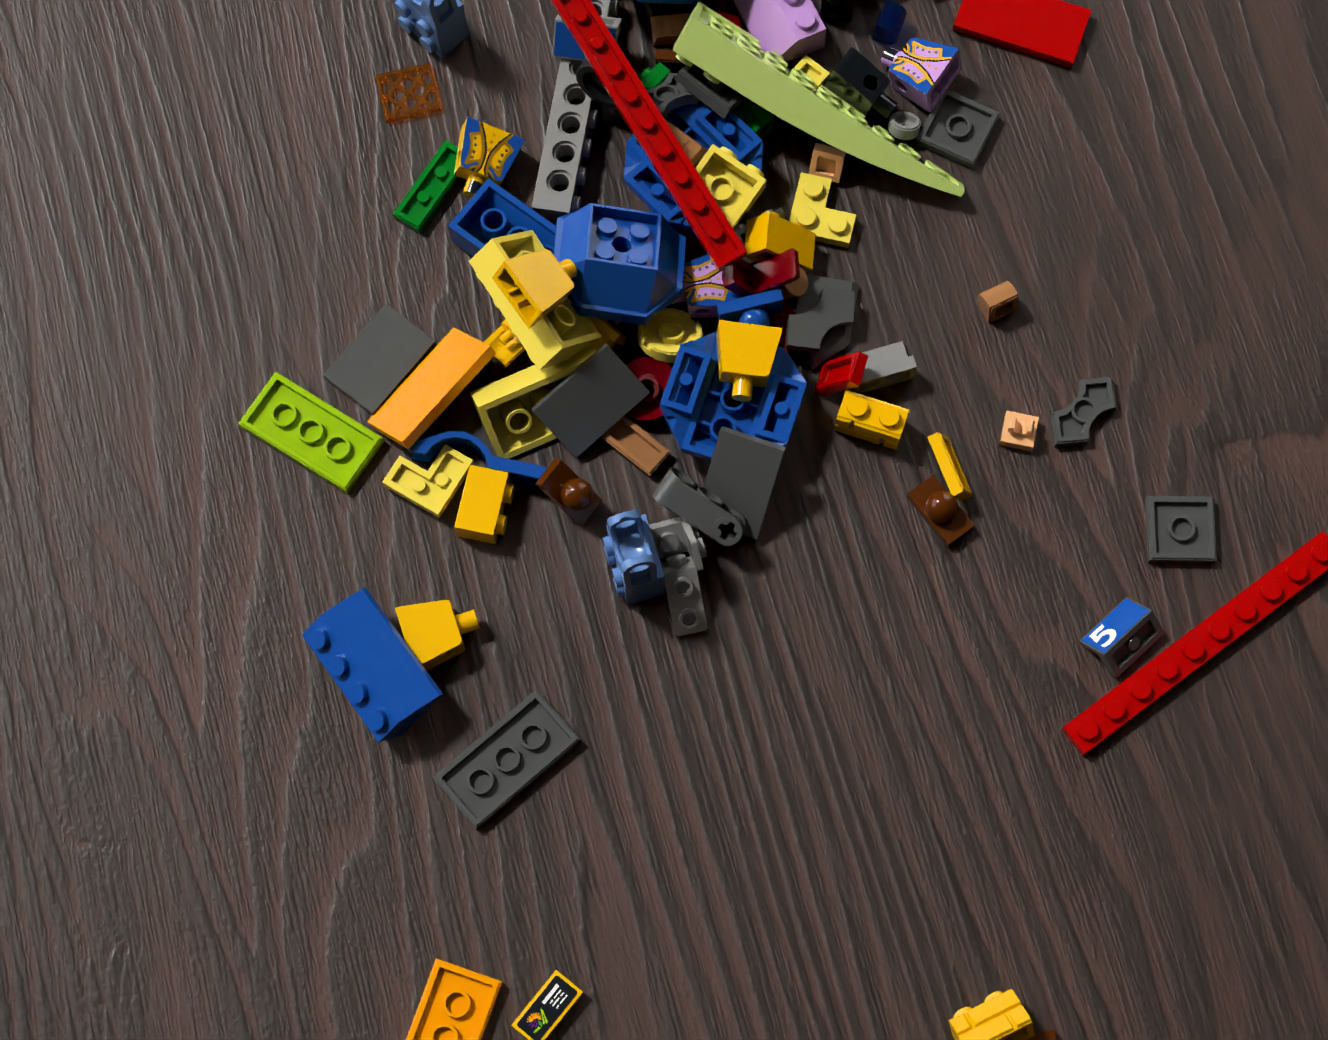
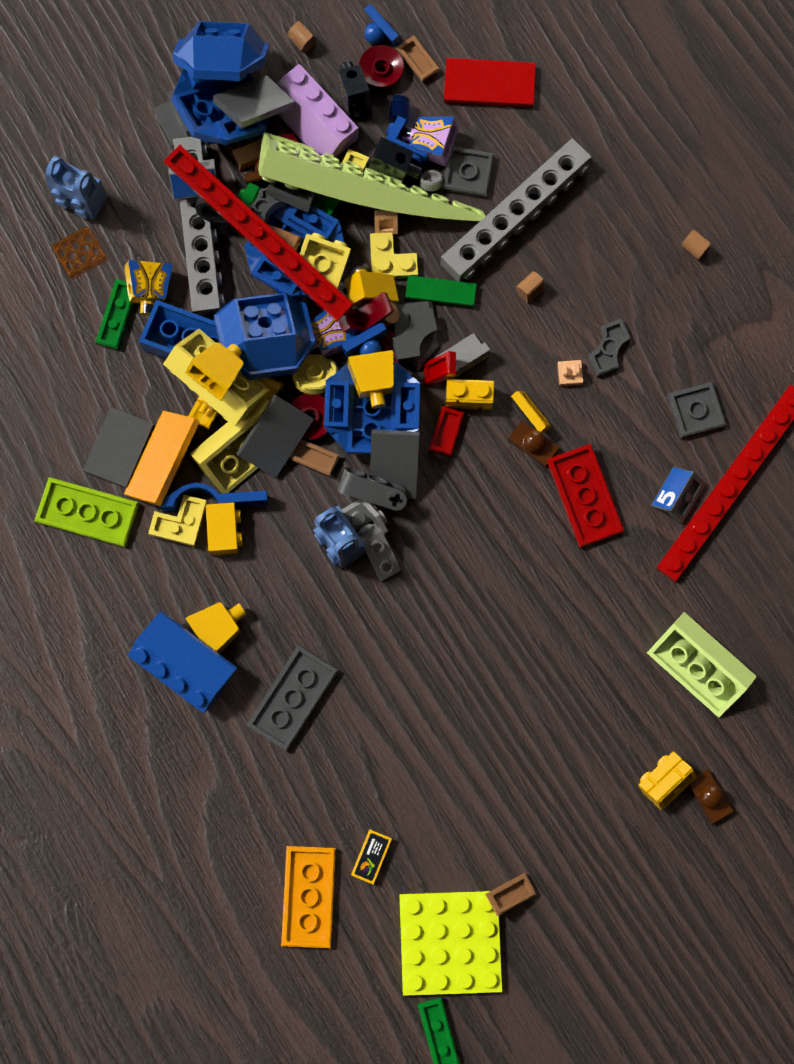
camera: 20 degrees left, 5 degrees up
(569, 491) = (279, 503): reddish brown tile -> none
(825, 461) = (446, 431): none -> red tile
(873, 51) = (394, 134): none -> blue bracket
(874, 274) = (440, 291): none -> green tile
(991, 601) = (585, 495): none -> red tile
(1087, 880) = (701, 664): none -> yellowish green slope
(1103, 141) = (571, 155): none -> light grey brick
(1243, 306) = (696, 244): none -> medium nougat brick

